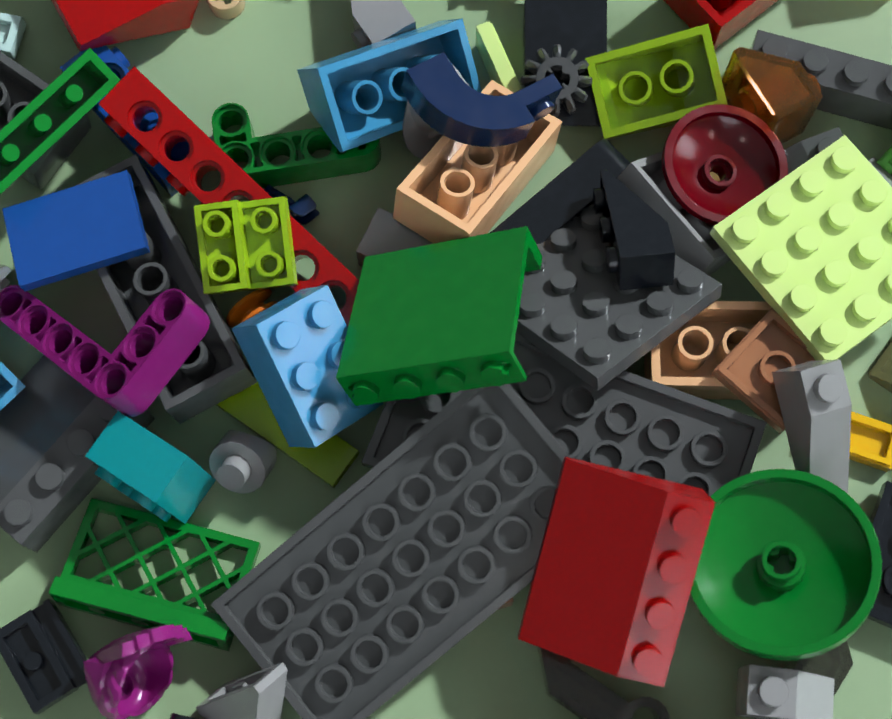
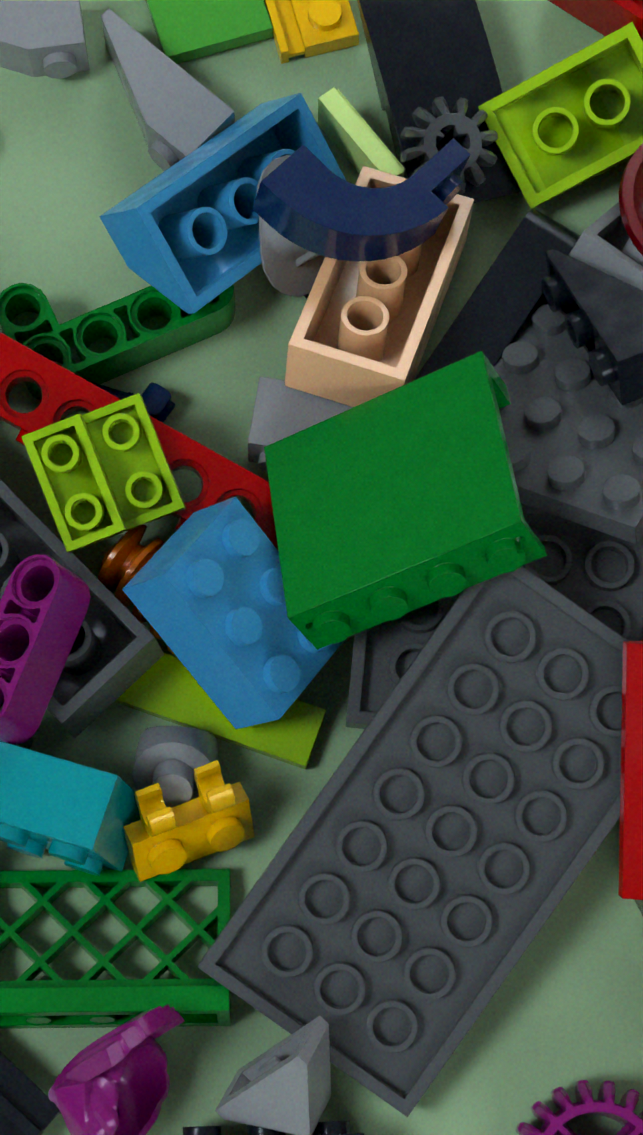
camera: 20 degrees left, 0 degrees up
(236, 508) = (181, 834): none -> yellow plate

